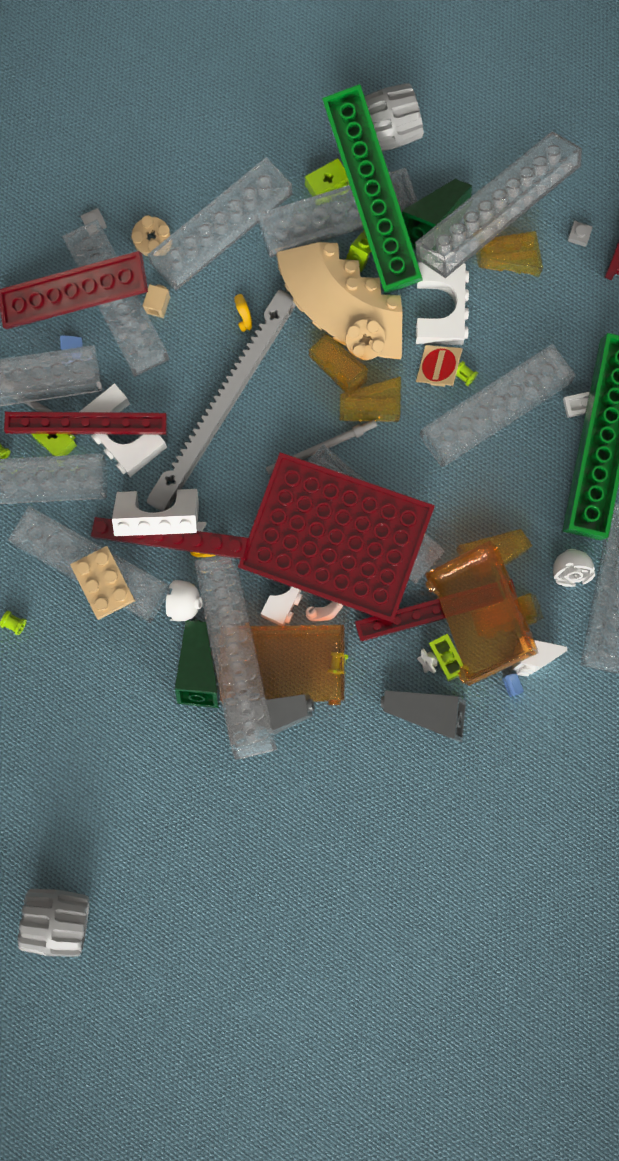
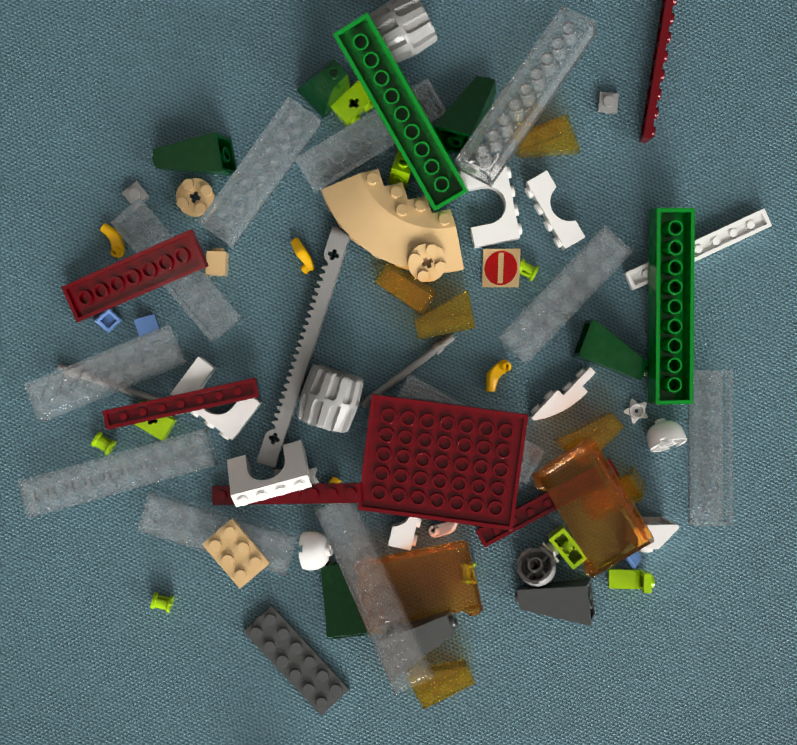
camera: 20 degrees left, 10 degrees up
(34, 332) = (107, 319): none -> medium blue slope
(62, 256) = (116, 240): none -> yellow arm
(136, 716) = (296, 660): none -> dark grey plate
(164, 195) = (201, 155): none -> dark green slope
(237, 450) = (330, 398): none -> light grey wheel
(280, 771) = (448, 680): none -> clear yellow wedge
(304, 155) = (325, 87): none -> dark green slope
(410, 468) = (495, 373): none -> yellow arm
(410, 671) = (536, 566): none -> light grey cylinder
(469, 510) = (557, 402): none -> white slope
(507, 709) = (631, 579): none -> lime bracket
(512, 345) = (565, 232): none -> white arch
(531, 470) = (607, 351): none -> dark green slope
(553, 543) = (641, 410): none -> white plate

